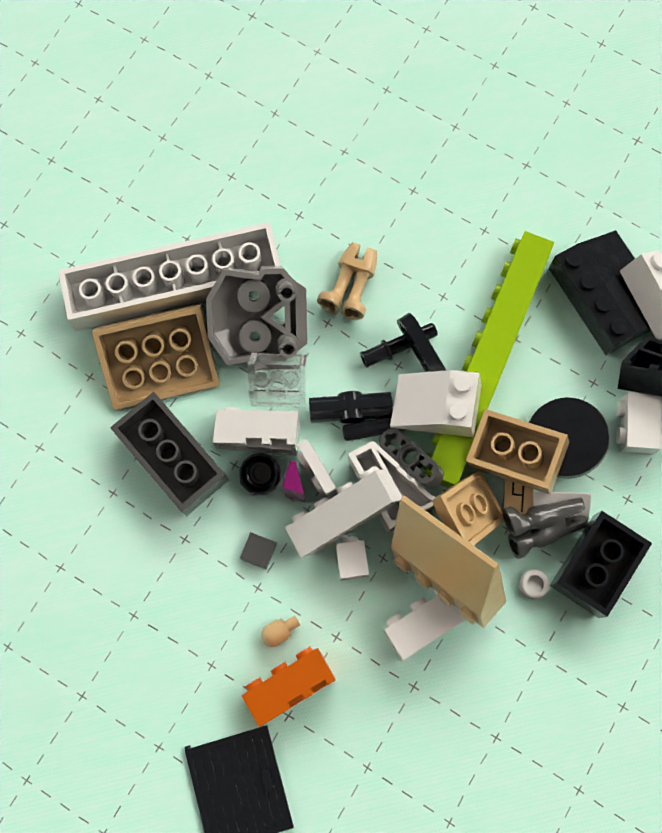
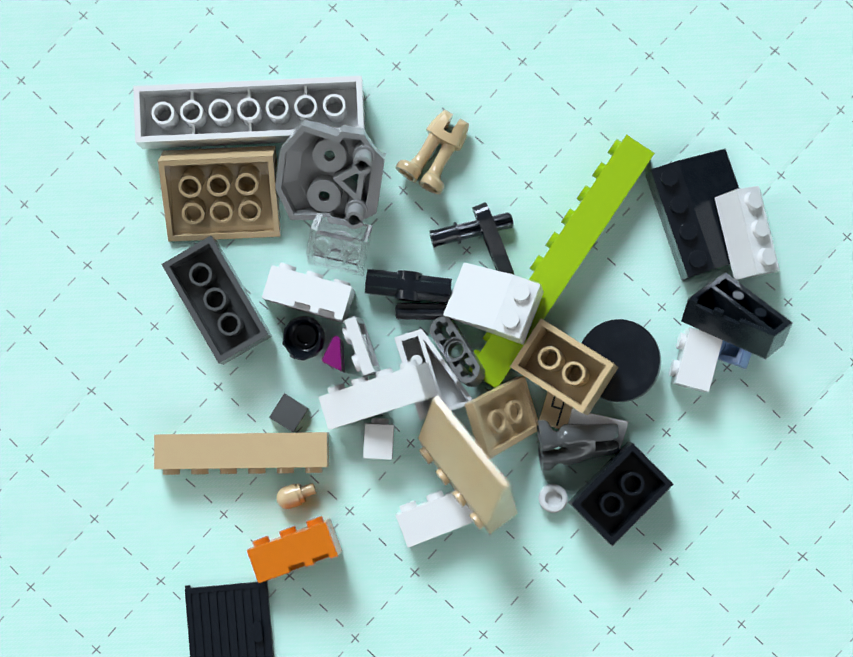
camera: 10 degrees right, 10 degrees up
(218, 596) = (241, 450): none -> tan brick

